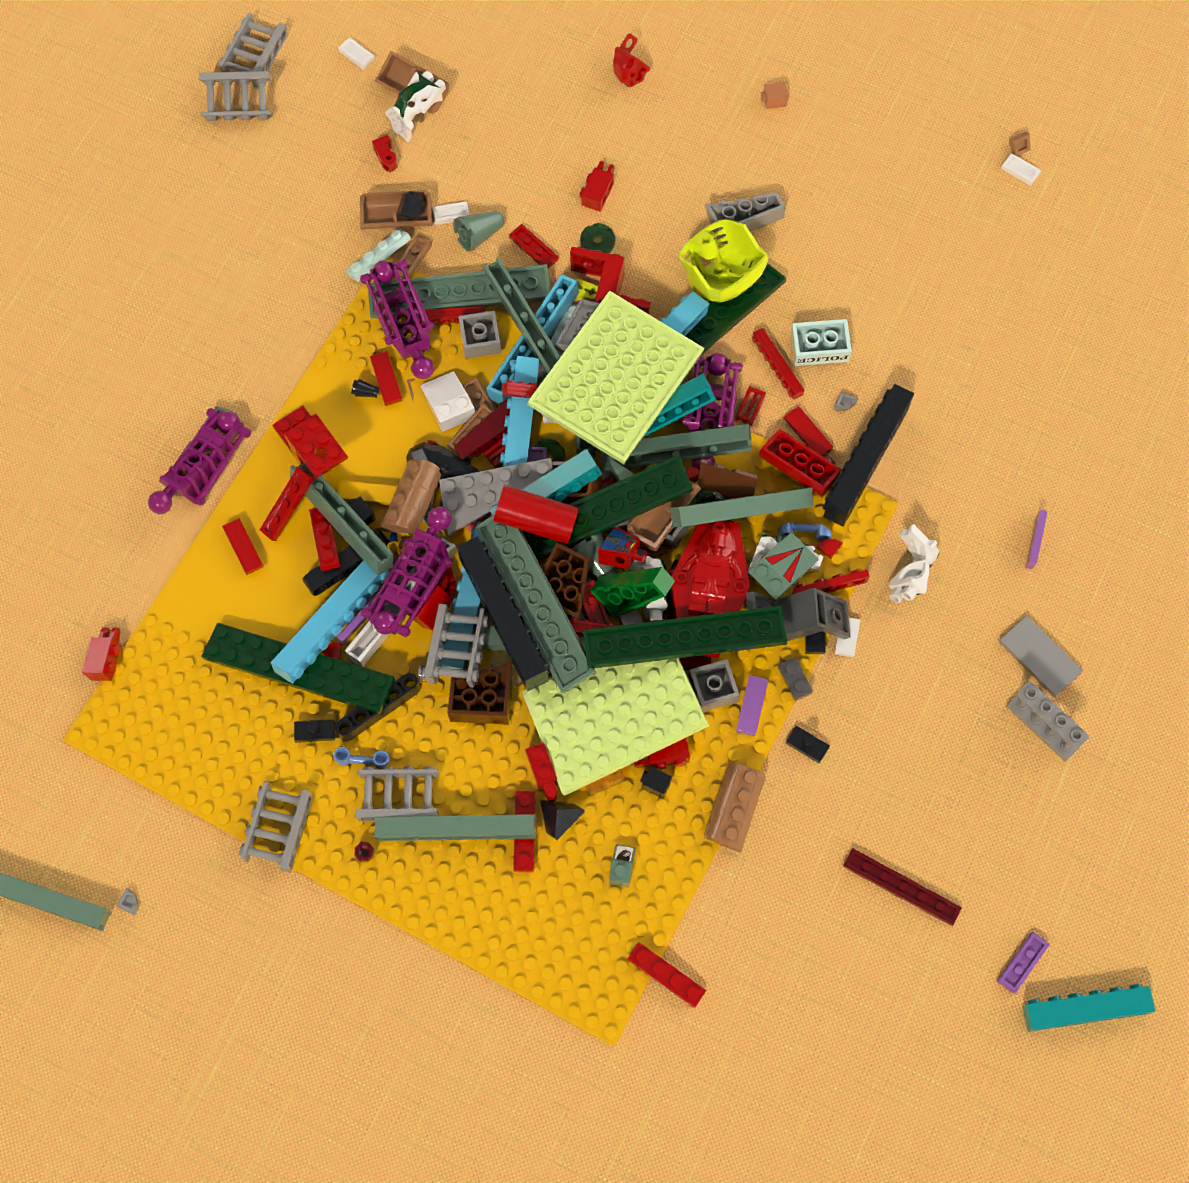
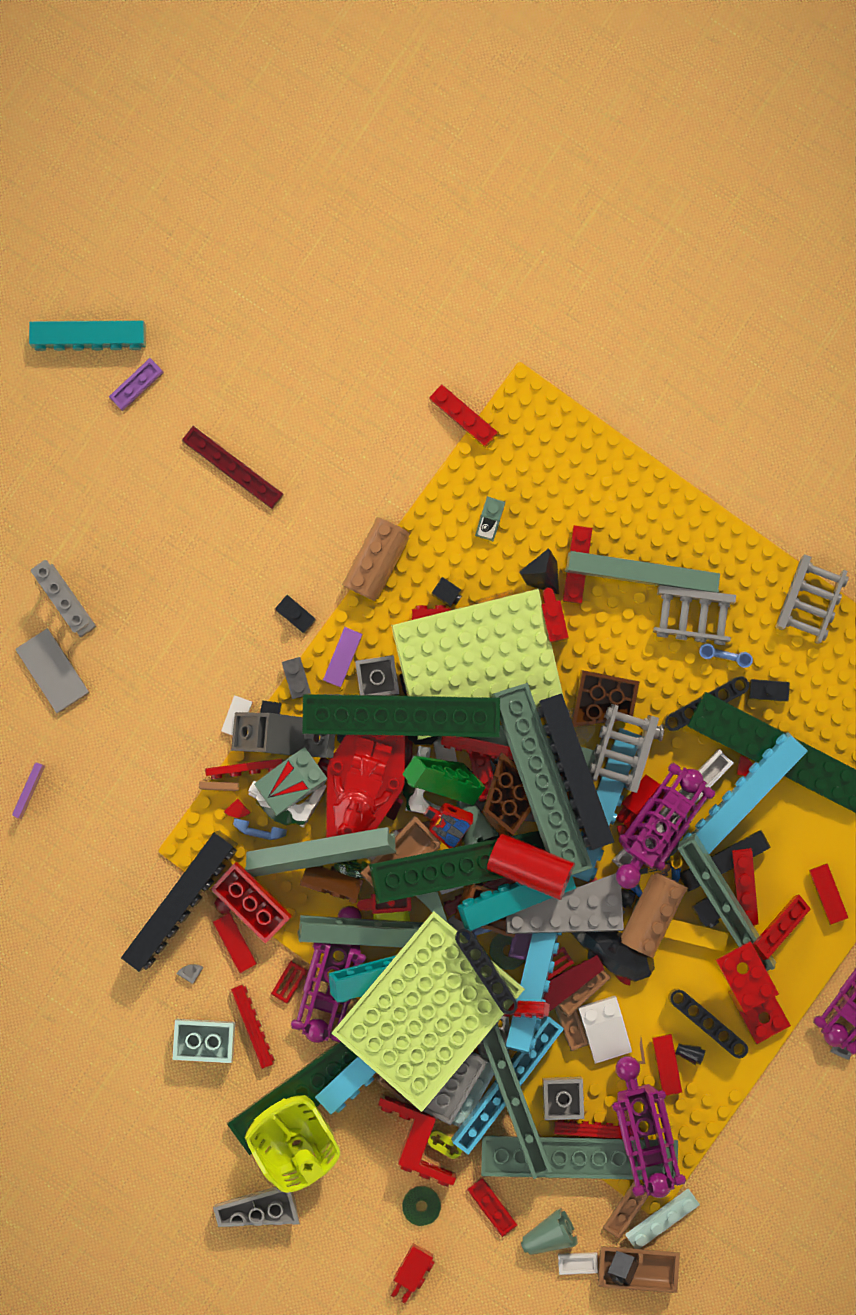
camera: 175 degrees left, 15 degrees up
(346, 409) = (713, 1031): none -> black beam
(352, 627) = (709, 803): medium lavender tile -> none
(364, 852) = (730, 564): dark red tile -> none
(567, 418) = (495, 976): none -> black beam
(851, 564) = (219, 786): none -> medium nougat tile
(914, 576) = (161, 765): white hips -> none

